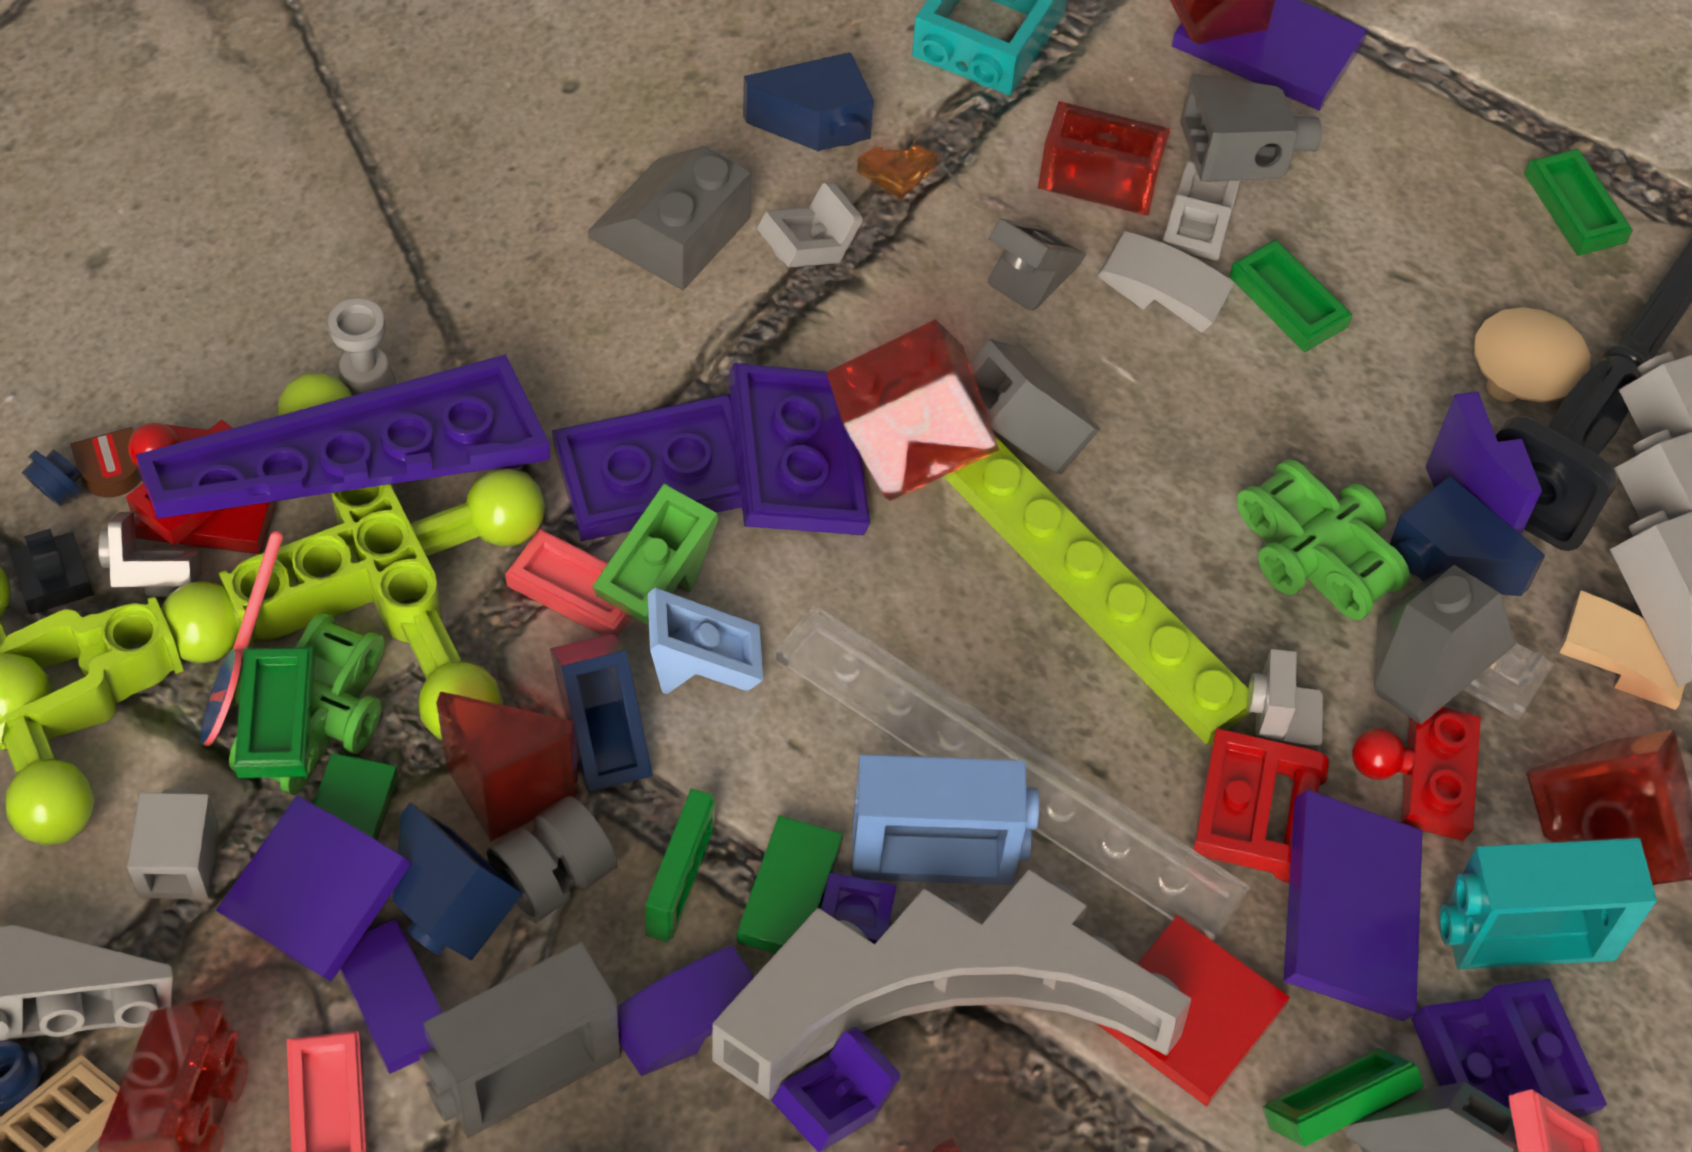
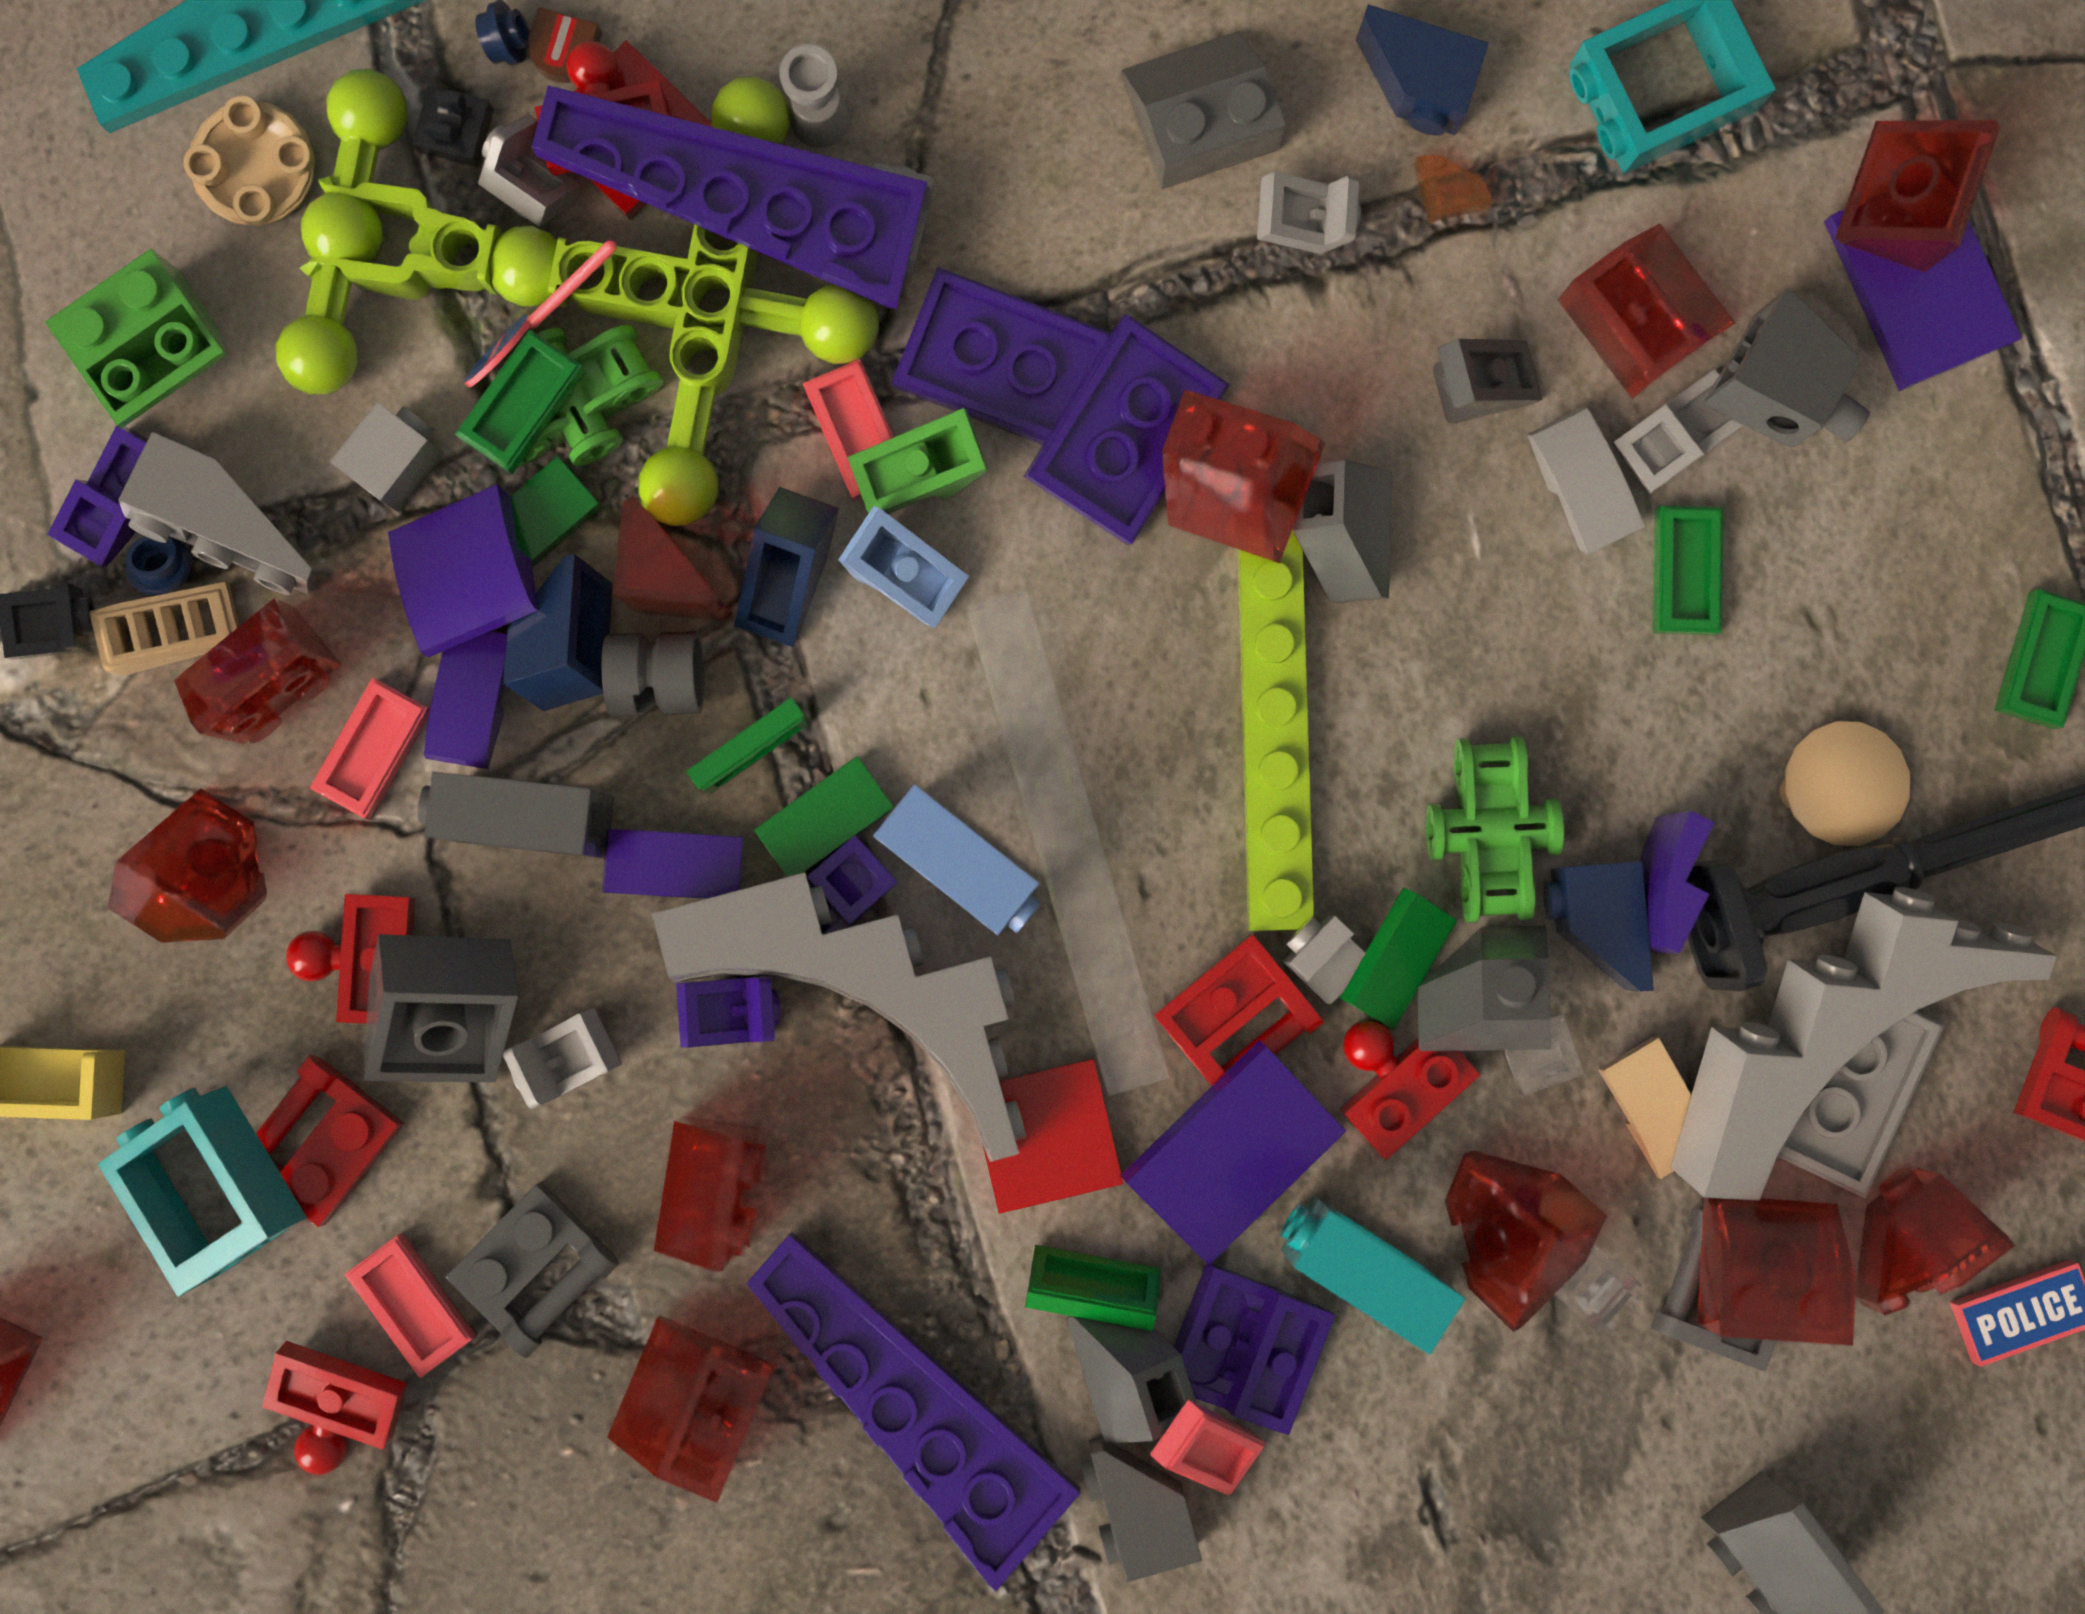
camera: 40 degrees right, 30 degrees up
(1339, 673) = (1398, 958): none -> green tile

